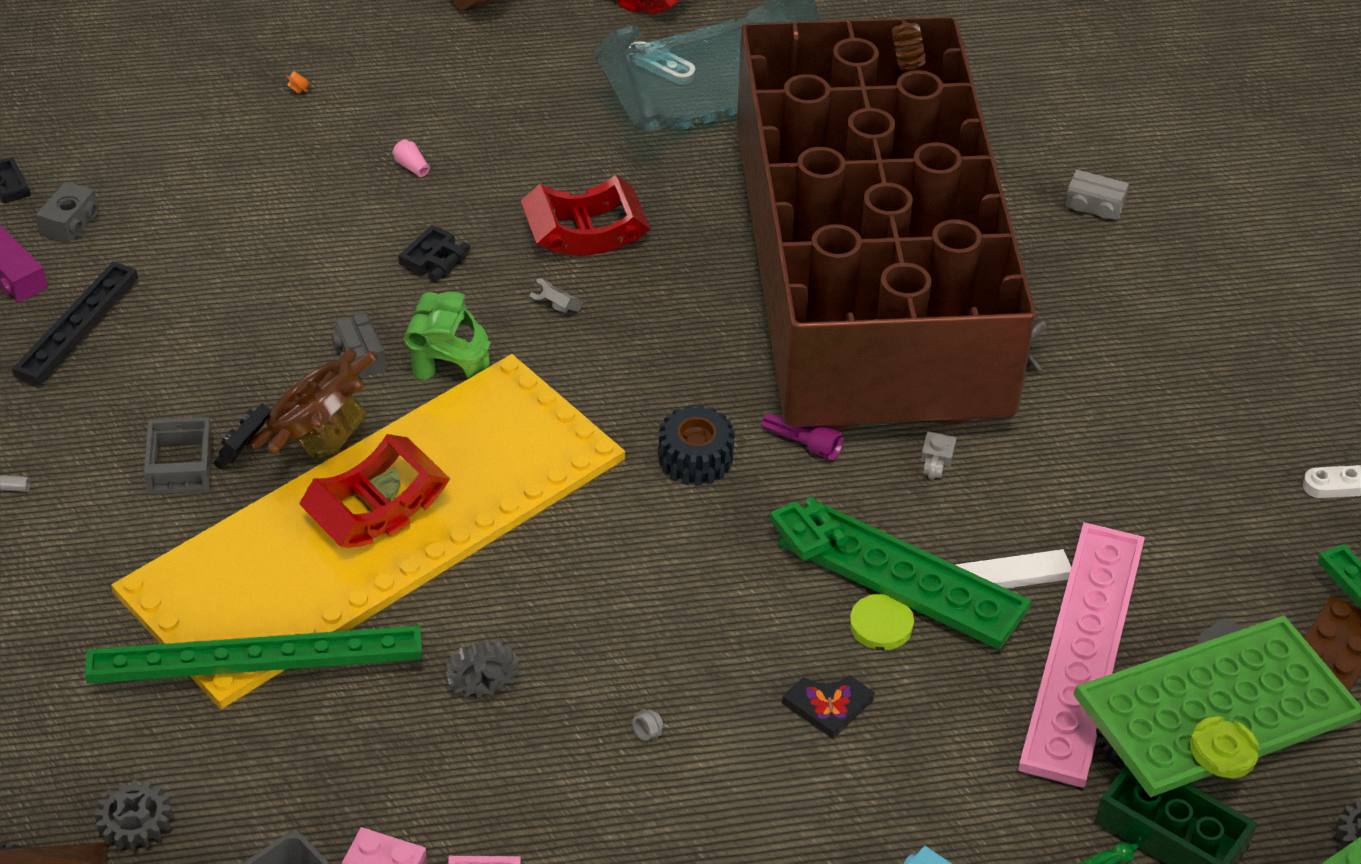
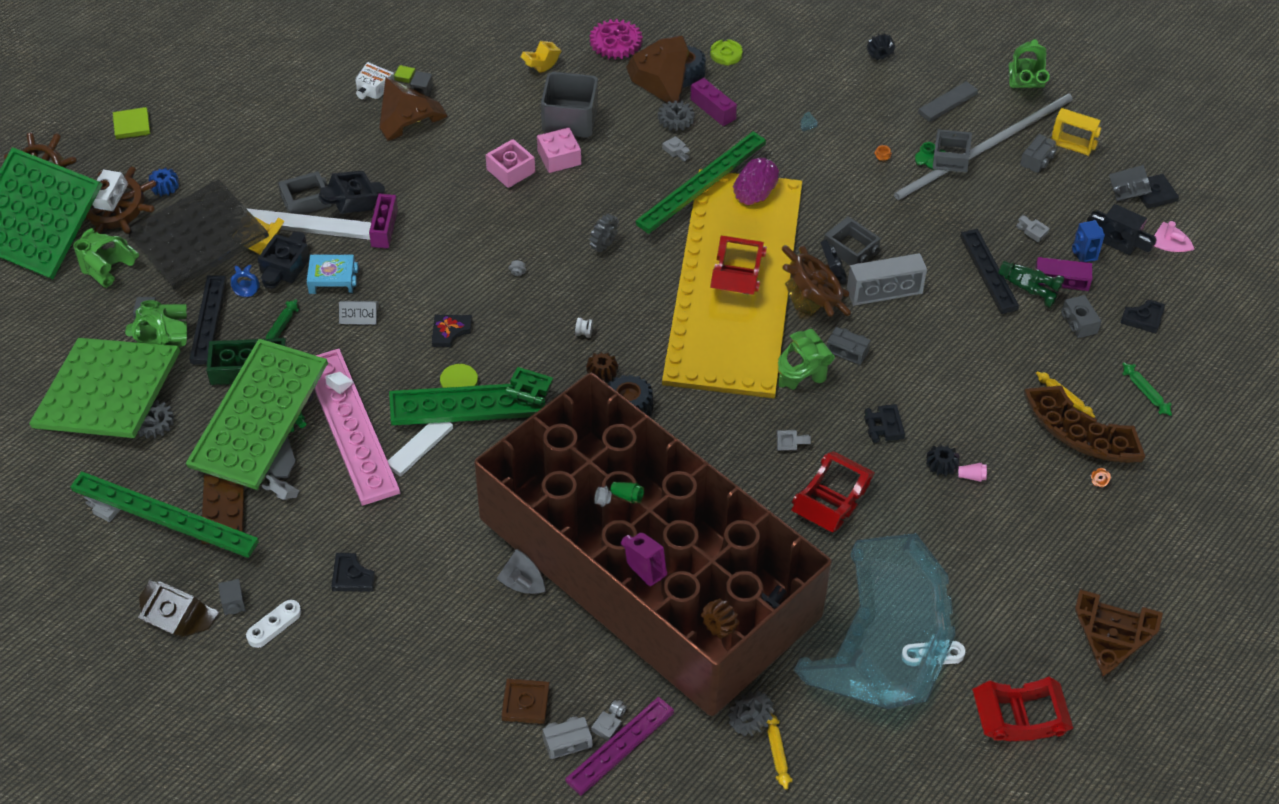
camera: 140 degrees right, 5 degrees up
(52, 793) = (713, 102): none -> magenta brick
(56, 260) = (1028, 280): none -> dark green piece
(120, 121) = (1147, 389): none -> green wheel
(187, 597) = (756, 181): none -> magenta hair
(202, 768) = (676, 147): none -> light grey plate
(207, 166) = (1078, 404): none -> yellow wheel
(215, 368) = (886, 279): none -> light grey brick
(257, 115) = (1082, 431): none -> reddish brown brick
(427, 183) = (942, 460): none -> black gear
(650, 574) = (584, 327): none -> white wheel
(682, 509) = (602, 366): none -> reddish brown gear
(891, 173) = (628, 491): none -> green cone
(924, 187) = (602, 496): none -> light grey plate
(937, 816) = (358, 312): none -> light grey panel
(941, 111) = (645, 557): none -> magenta torso
(1040, 190) = (607, 724): none -> light grey plate
(1058, 169) = (619, 746): none -> magenta tile
(1059, 700) = (338, 382): none -> white slope
(1111, 247) = (525, 701): none -> reddish brown plate
(1214, 477) = (350, 575): none -> black tile
(1224, 747) = (239, 381): lime tile -> none
(1238, 610) = (282, 489): none -> light grey plate

